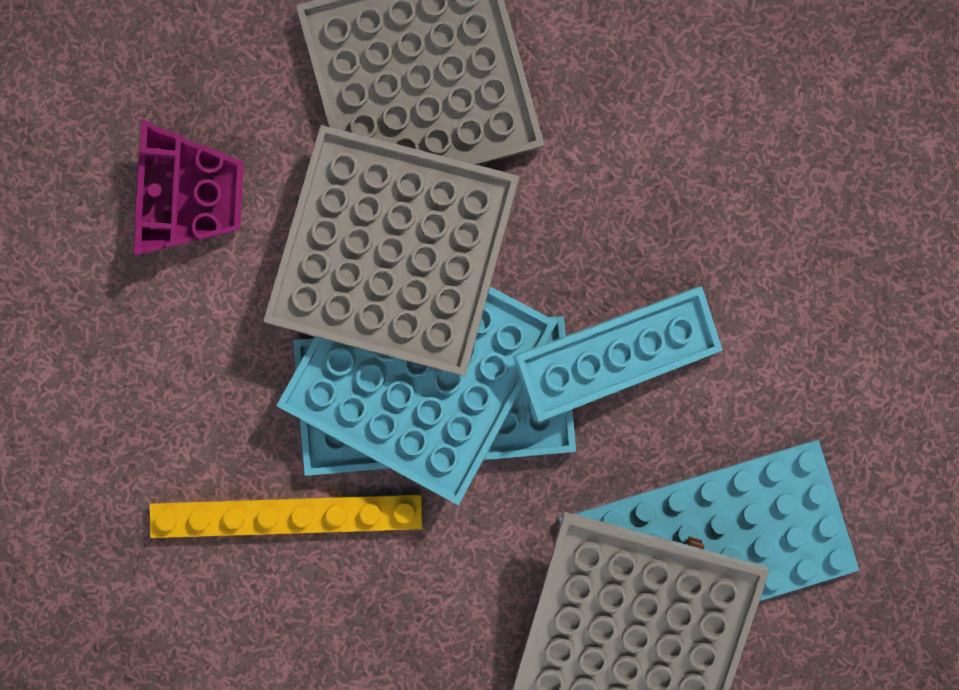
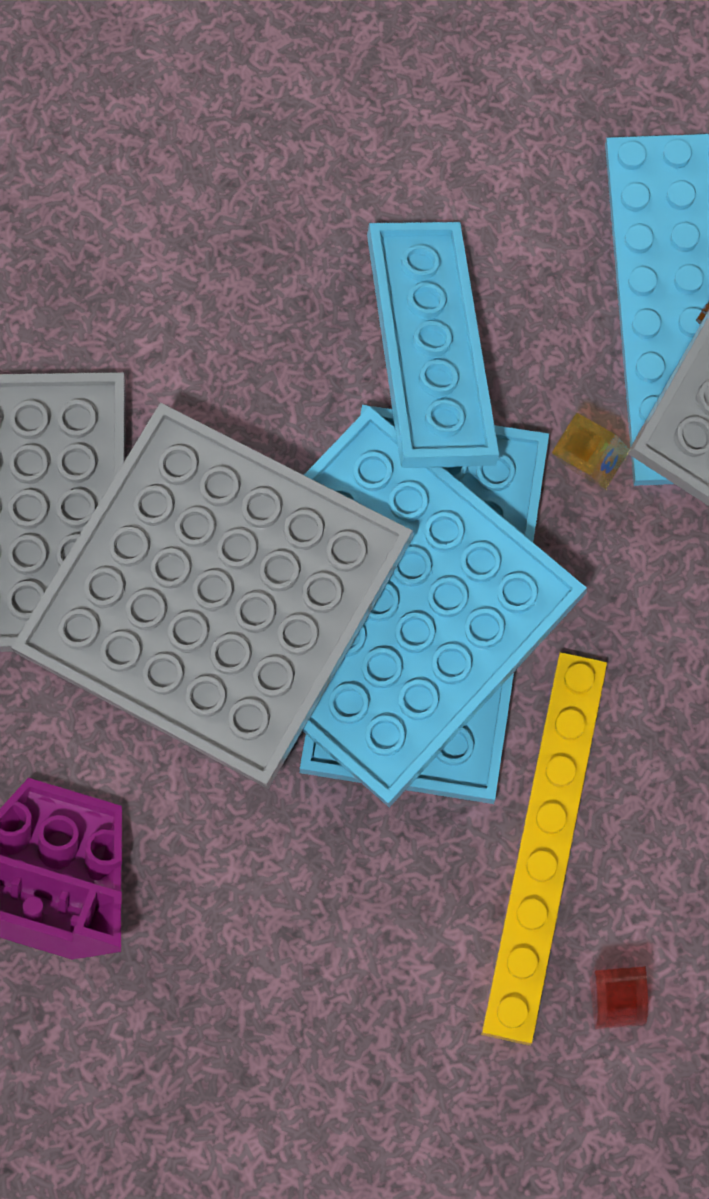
camera: 80 degrees left, 15 degrees down
(194, 588) = (619, 997): none -> clear red brick
(568, 484) = (591, 450): none -> clear yellow brick

